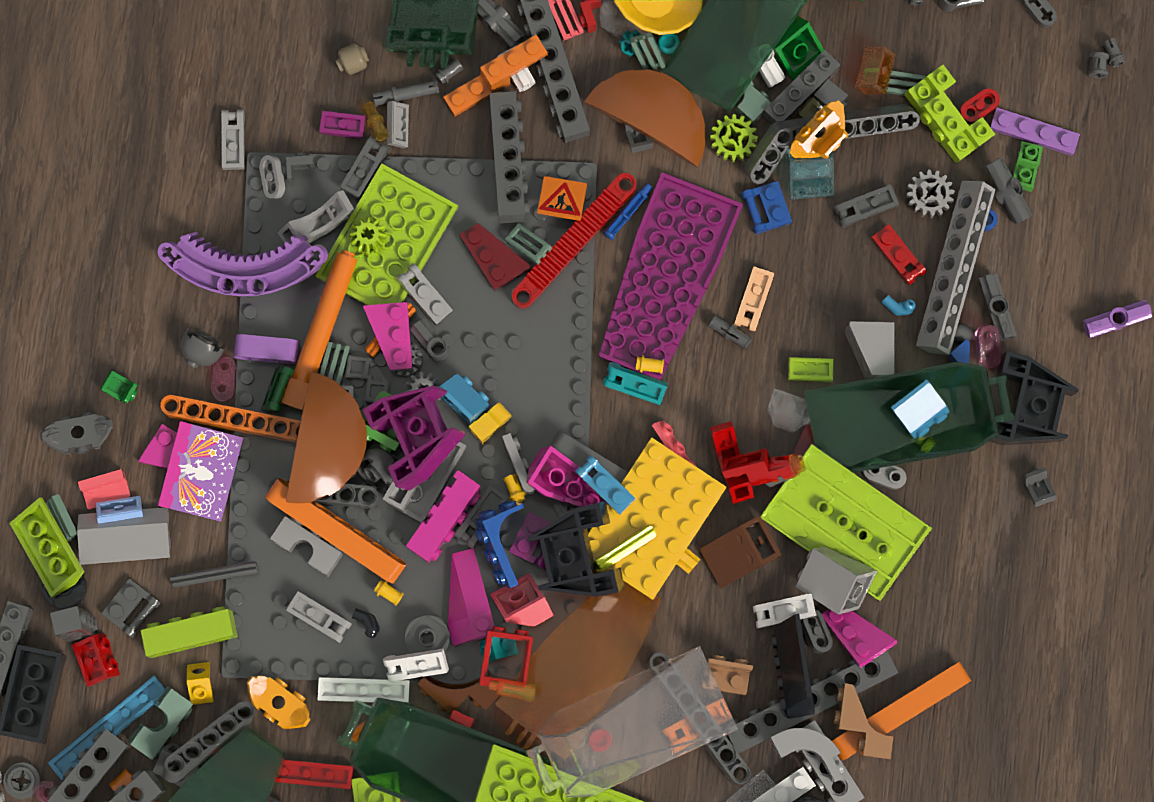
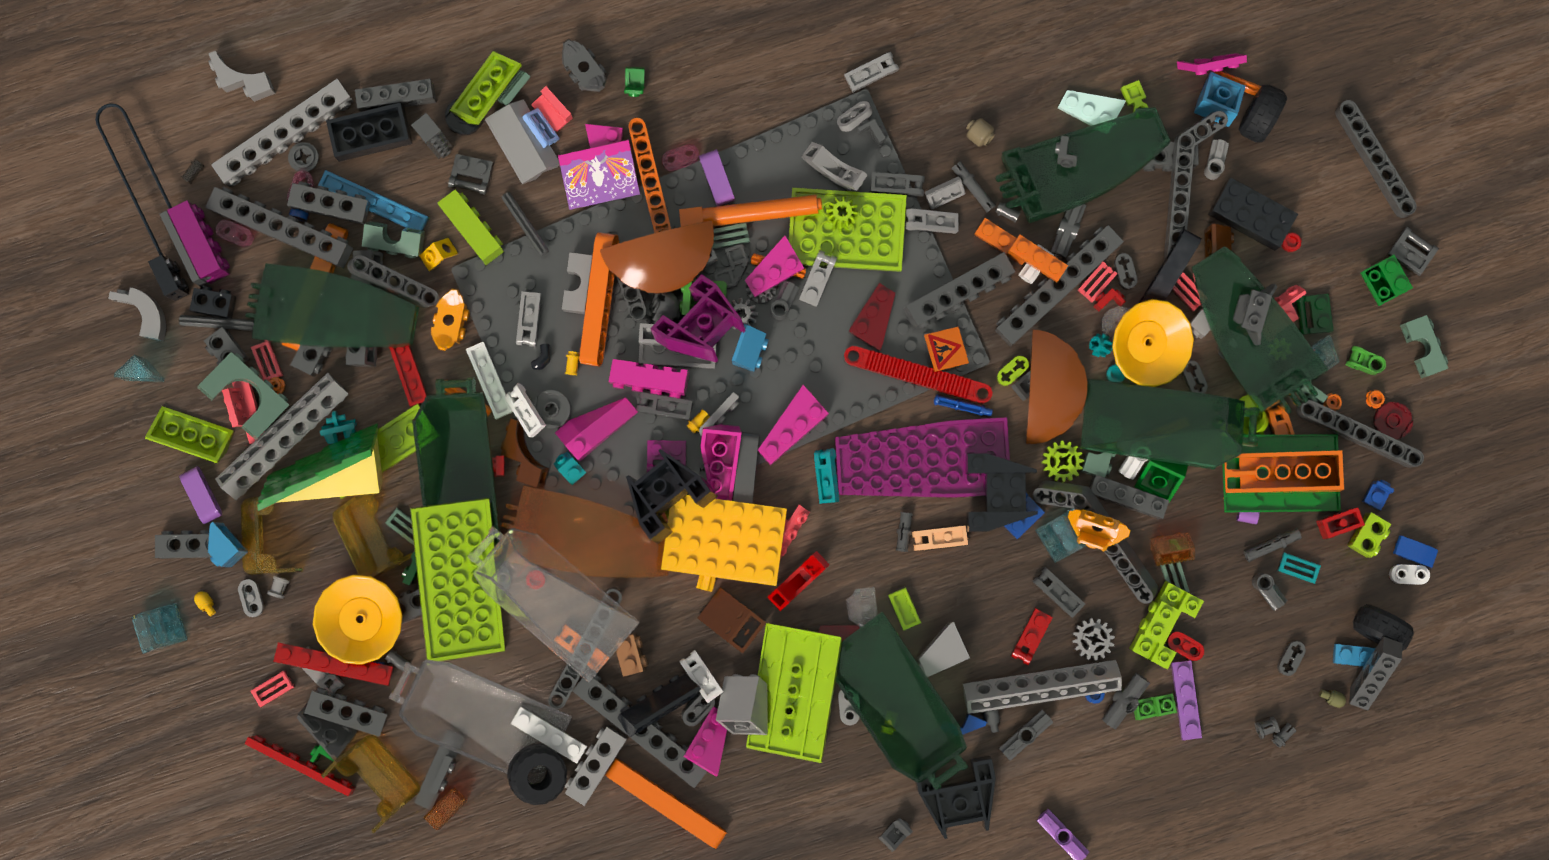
camera: 70 degrees right, 5 degrees up
(96, 659) = (419, 167): red bracket -> none
(200, 348) = (694, 127): dark grey cylinder -> none
(213, 268) = (760, 107): medium lavender gear -> none
(276, 389) = (689, 200): dark green plate -> none
(342, 124) = (924, 150): magenta plate -> none
(375, 121) = (938, 174): clear yellow axle -> none
(421, 150) = (932, 221): none -> light grey plate
(487, 531) = (659, 414): blue bracket -> none
(490, 422) = (740, 377): yellow leg -> none
(500, 632) = (540, 483): red window -> none
(513, 689) = (536, 494): clear yellow cylinder -> none
(522, 603) = (610, 469): coral slope -> none
(540, 252) = (894, 353): sand green tile -> none
(565, 388) = (796, 422): none -> dark pink wedge
(605, 485) = (731, 490): dark azure plate -> none
(610, 145) = (1009, 367): none -> lime beam
(626, 547) = (689, 529): neon yellow axle -> none
(649, 364) = (845, 479): yellow pin -> none
(652, 64) = (1091, 368): sand green tile -> none
(738, 211) = (1003, 492): none -> black wedge
(763, 469) = (803, 607): red plate -> none
(809, 108) = (1116, 511): olive plate -> none
(812, 741) = (606, 739): light grey arch -> none
(830, 93) = (1135, 522): dark grey brick -> none
(852, 718) = (639, 768): medium nougat arch -> none
(899, 308) = (988, 657): dark azure arm -> none
(920, 410) = (908, 711): slope -> none
(986, 345) = (992, 742): clear pink plate -> none

